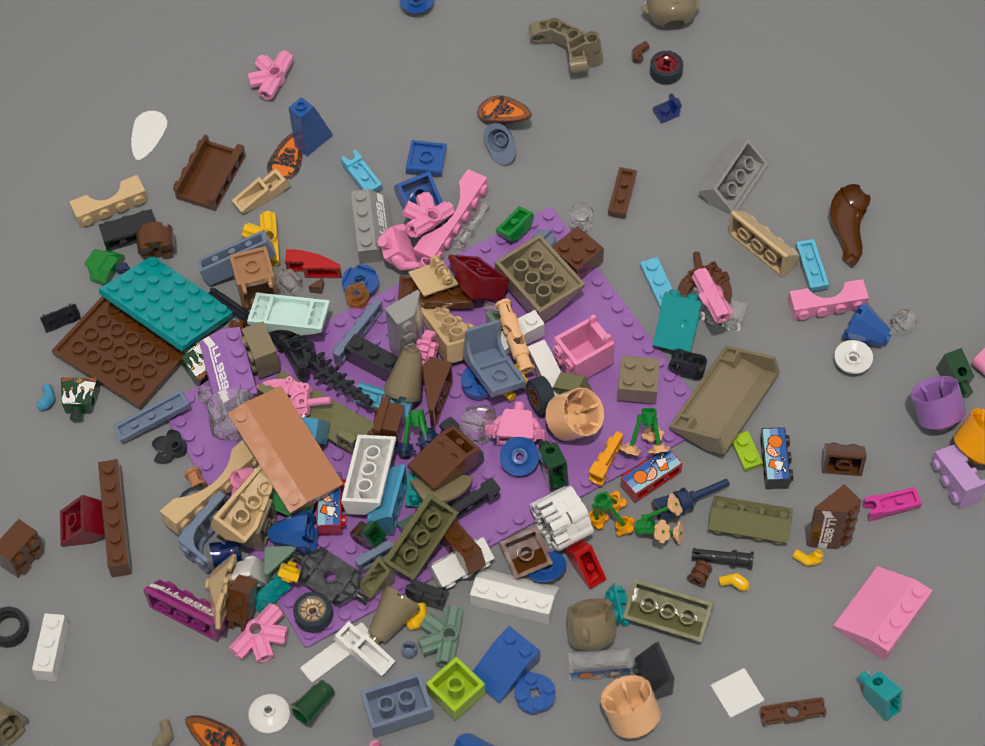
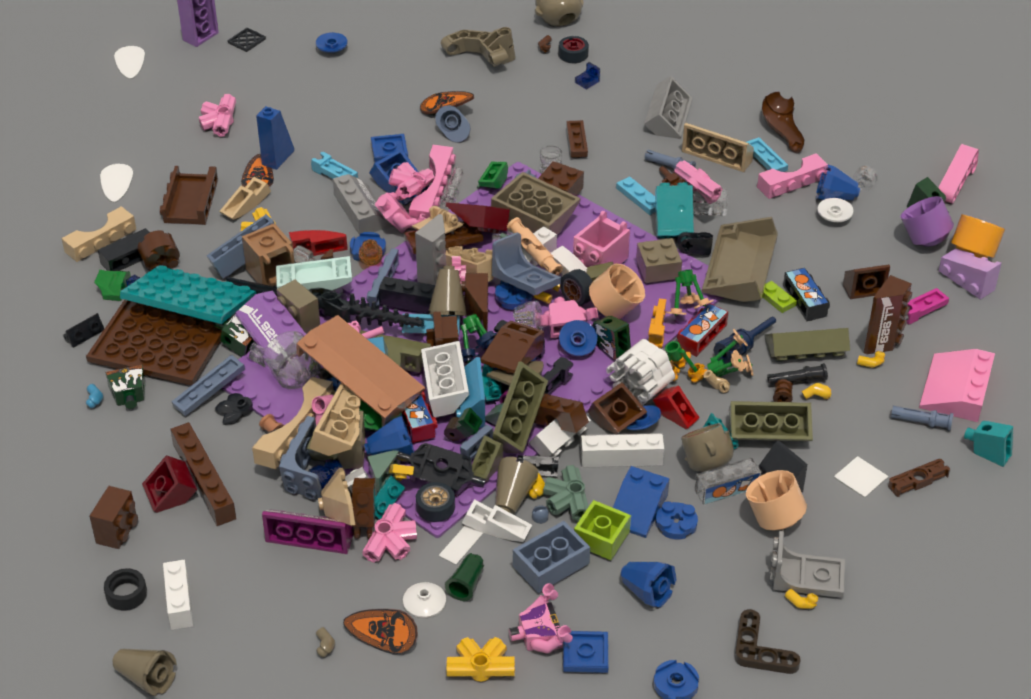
camera: 20 degrees left, 15 degrees down
(639, 542) = (717, 382): none -> tan arm
(713, 252) = (665, 160): none -> sand blue pin
(837, 646) = (931, 418): none -> sand blue pin

